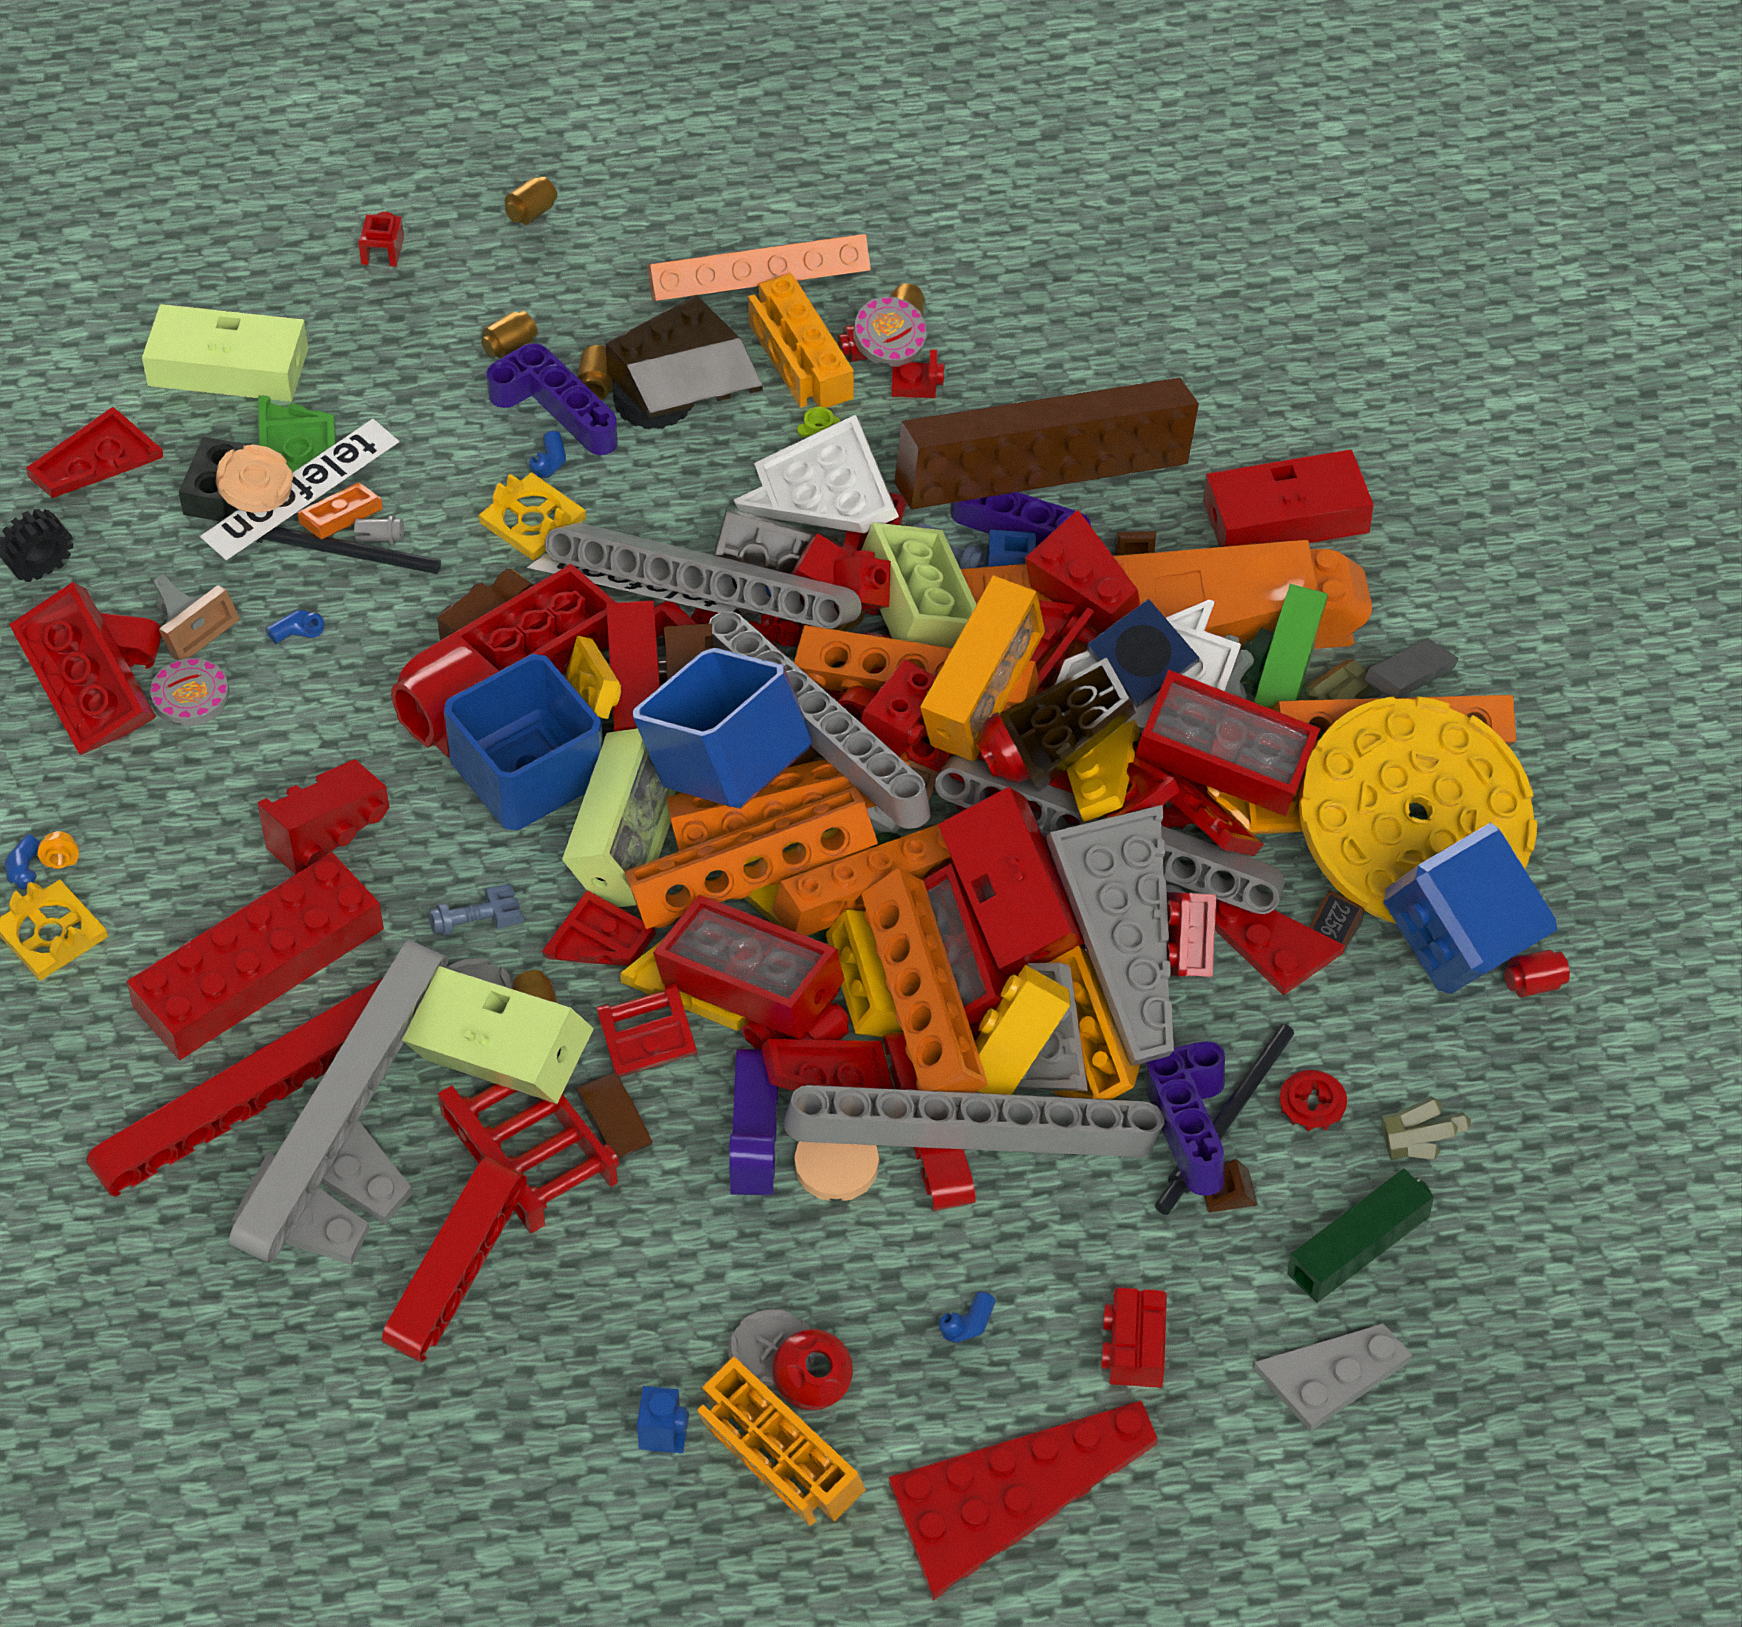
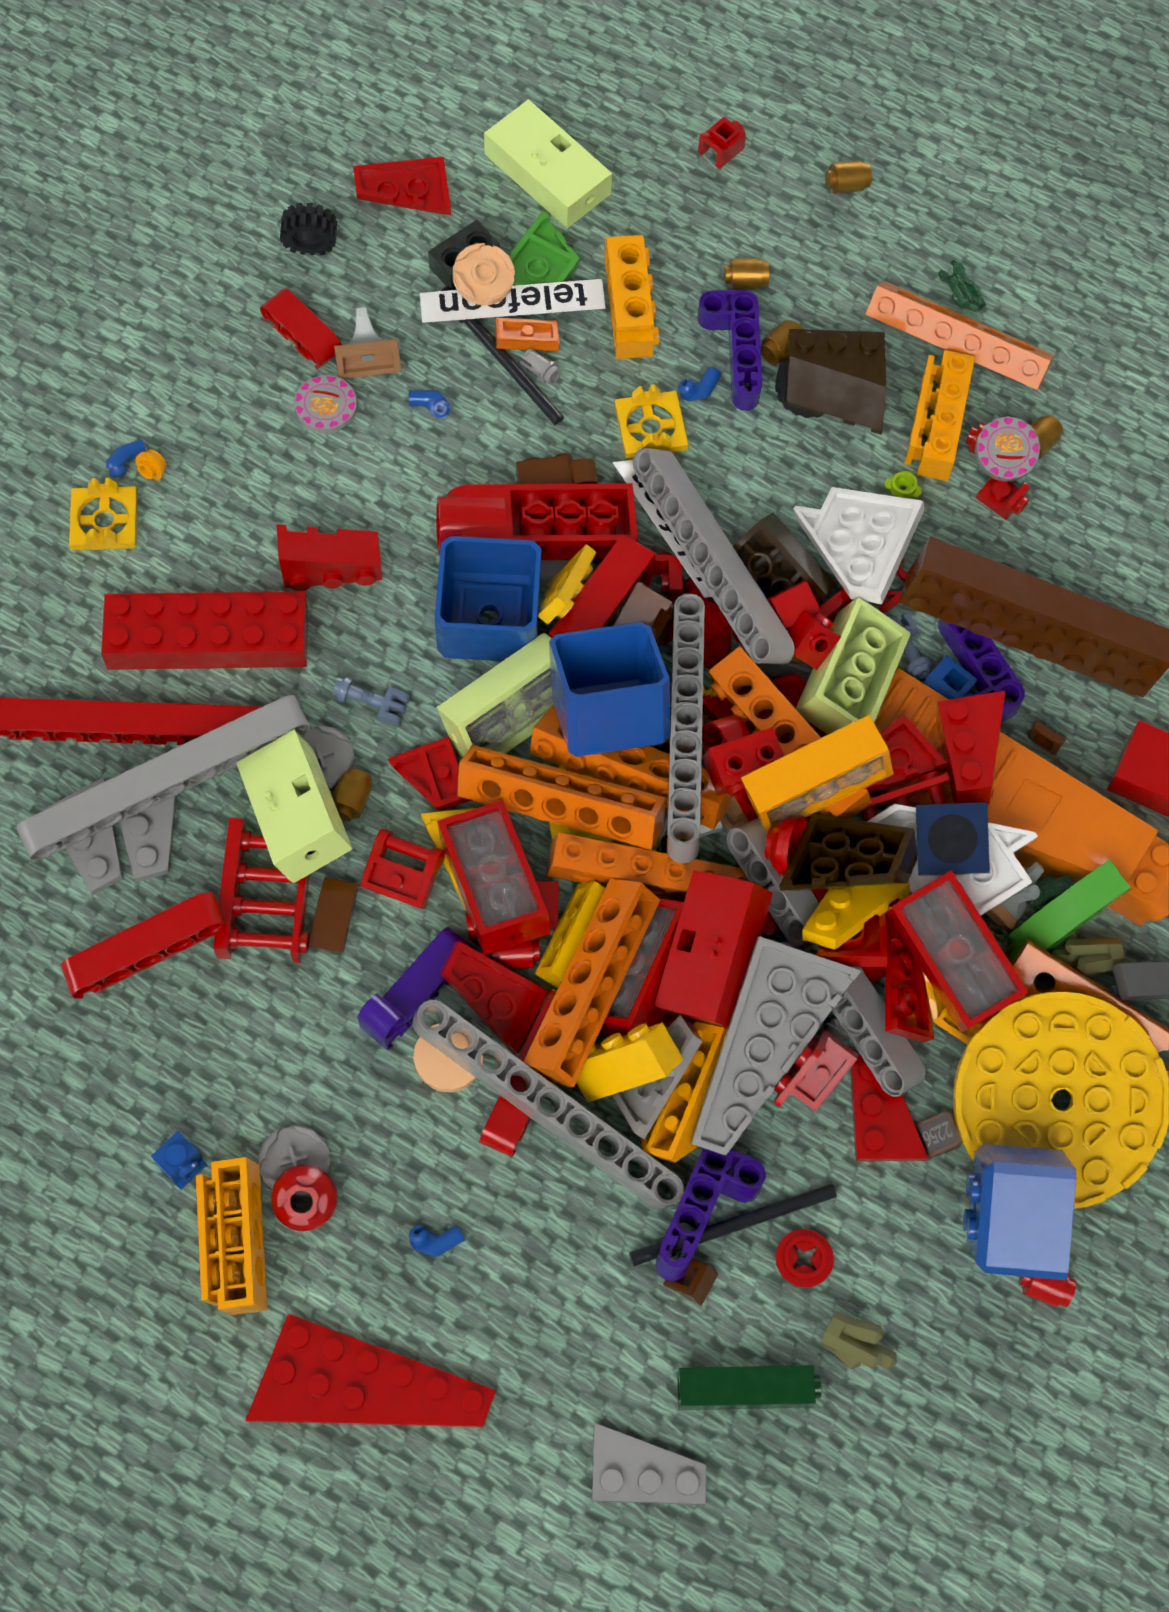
camera: 35 degrees right, 15 degrees up
(82, 669) = (264, 342): red slope -> none
(414, 416) = (630, 296): none -> light orange brick
(728, 233) = (964, 290): none -> clear green plate
(1137, 1337) = (529, 1343): red brick -> none

